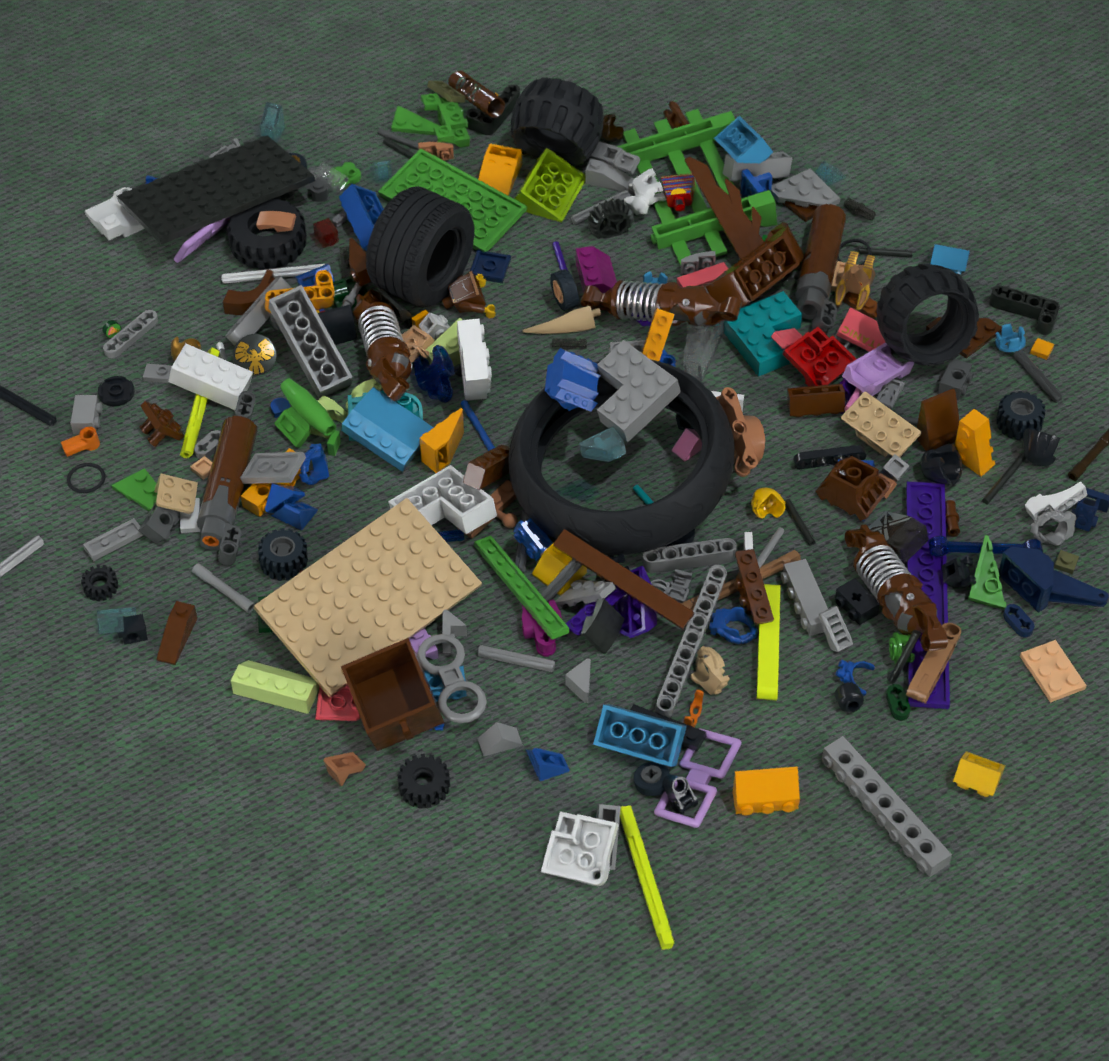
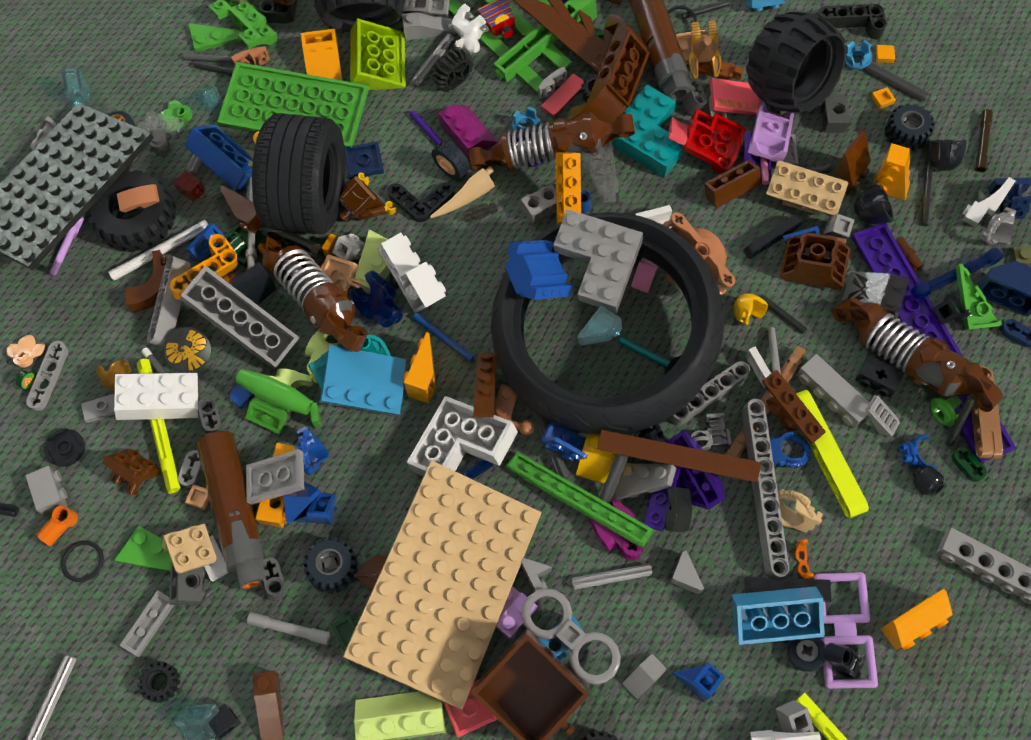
camera: 25 degrees left, 15 degrees up
(119, 310) = (25, 351): none -> light nougat plate
(521, 320) = (421, 205): none -> black beam
(1014, 384) = (883, 98): none -> light orange tile

